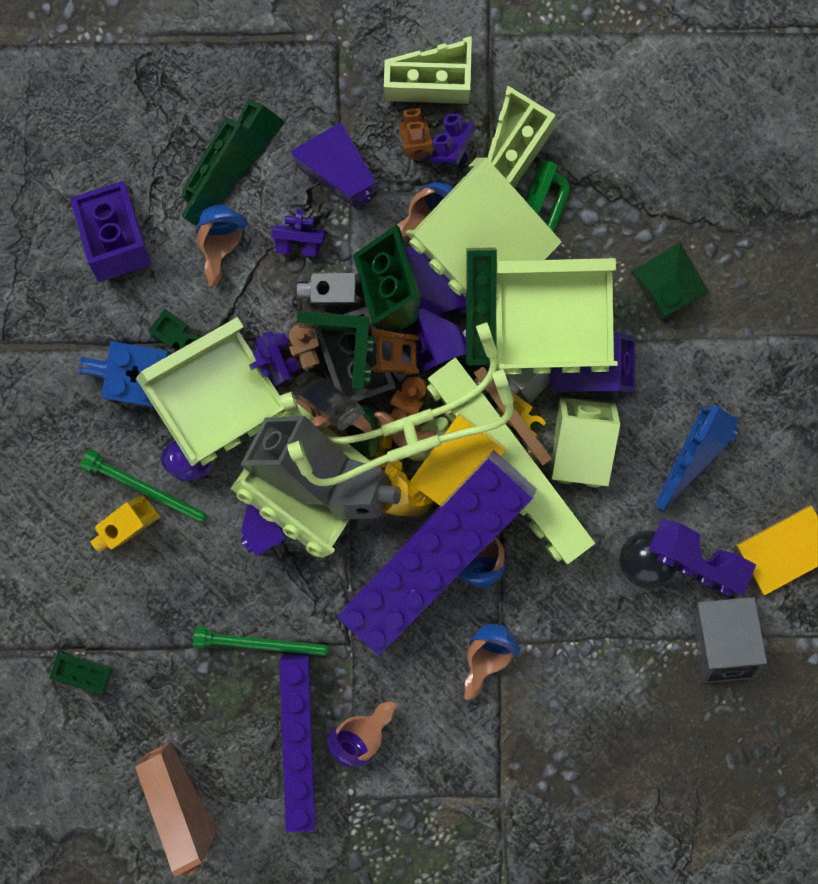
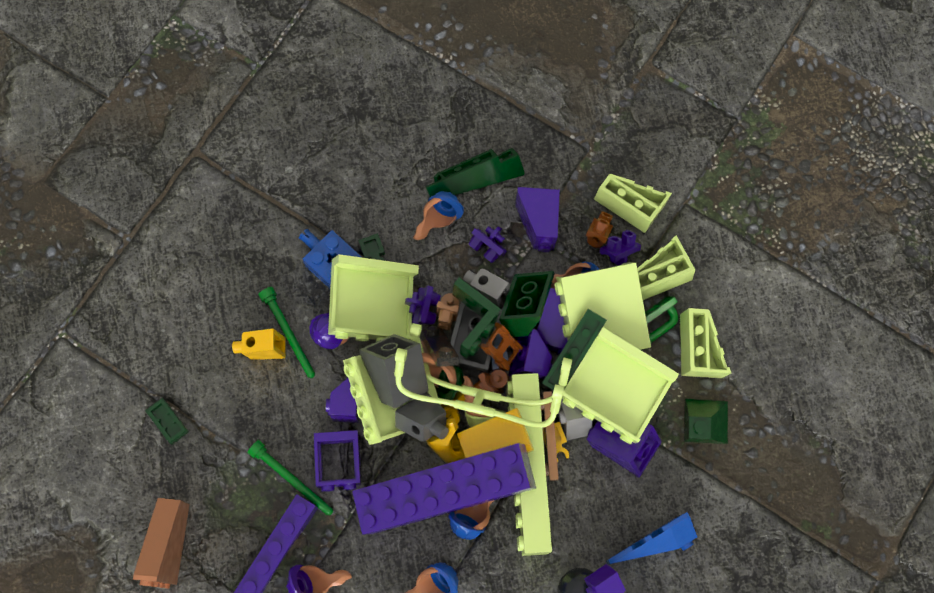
camera: 35 degrees right, 15 degrees down
(110, 231) = (376, 170): dark purple slope -> none
(279, 568) = (335, 438): none -> dark purple window
(584, 441) = (586, 486): yellowish green slope -> none
(612, 199) = (700, 347): none -> yellowish green wedge

